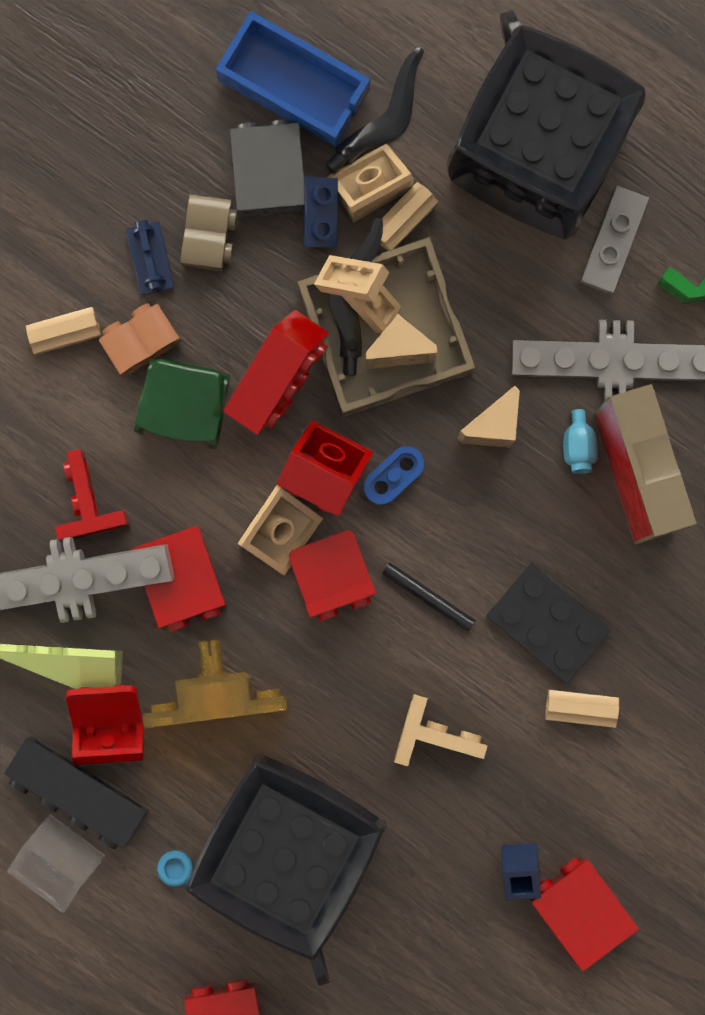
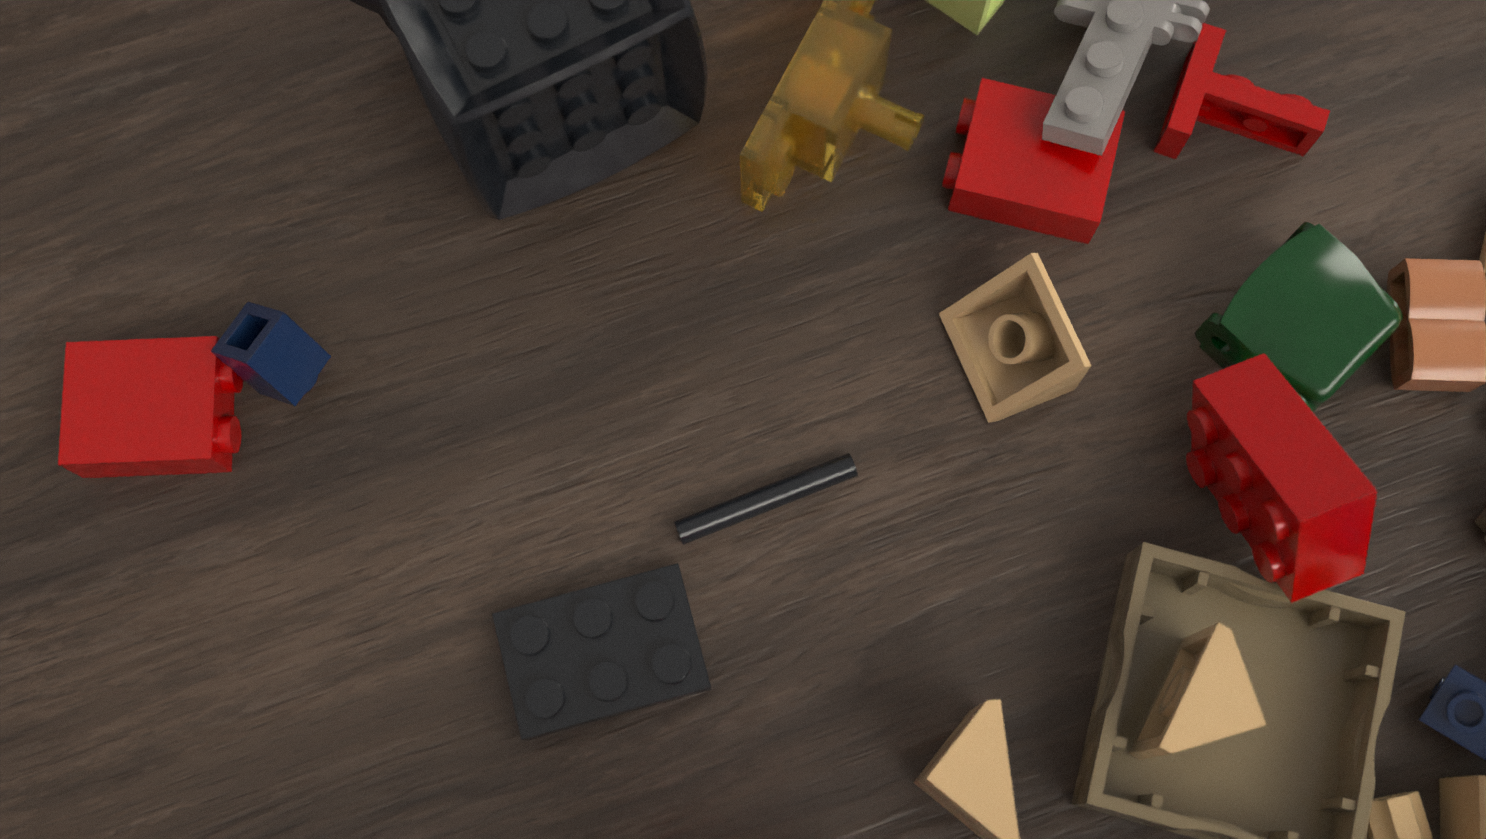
camera: 125 degrees right, 10 degrees down
(324, 468) = (1071, 458): red brick -> none
(332, 575) = (892, 375): red bracket -> none
(344, 315) = (1340, 671): black piece -> none
(362, 288) = (1344, 699): tan bracket -> none
(392, 474) = (989, 567): blue plate -> none
(434, 734) = (556, 366): tan bracket -> none
(582, 708) = (437, 611): tan axle -> none

